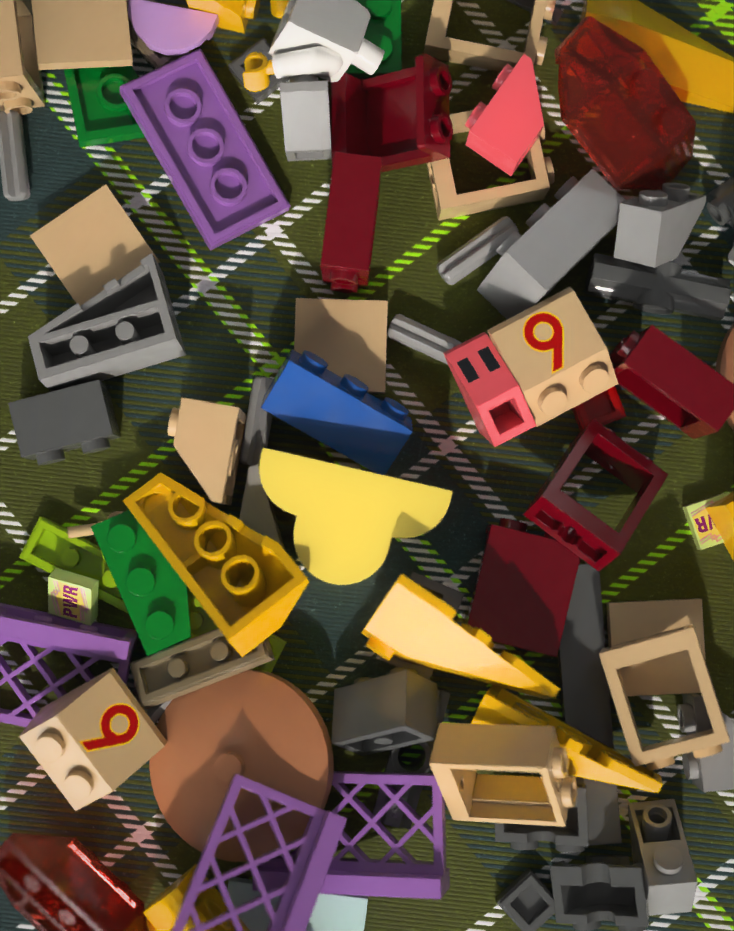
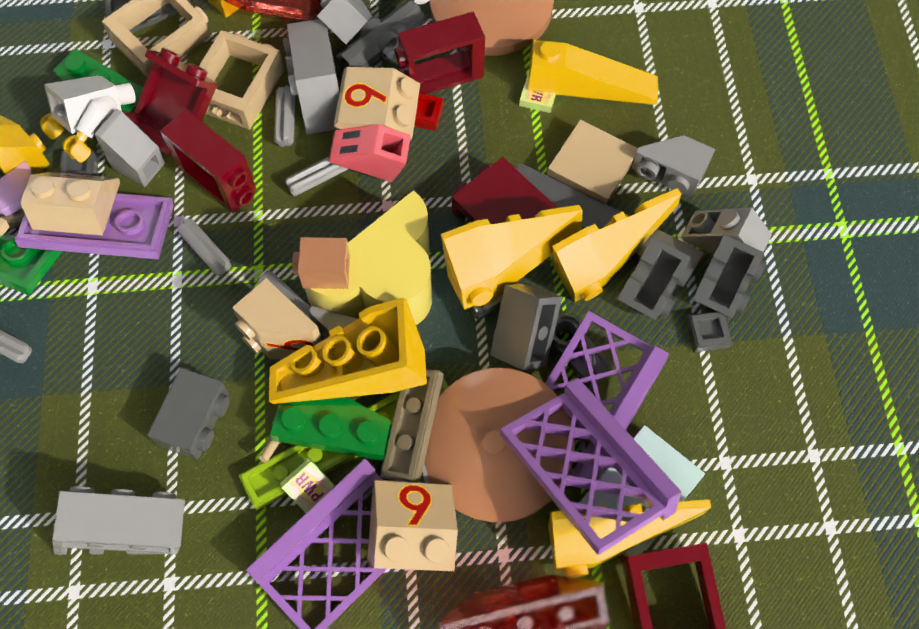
camera: 50 degrees left, 20 degrees down
(92, 245) = (97, 325): tan tile -> none
(110, 334) = (159, 341): light grey wedge -> none
(203, 107) = (69, 202): none -> tan slope
(258, 286) = (204, 247): none -> light grey axle
(286, 463) = (322, 263): none -> nougat brick
(338, 411) = (282, 240): blue brick -> none
(346, 336) = (277, 221): tan tile -> none
(503, 798) = (633, 281): tan window -> none
(511, 120) = (225, 39): coral slope -> none
(558, 512) = (467, 149): dark red window -> none
(651, 647) = (587, 182): tan window -> none

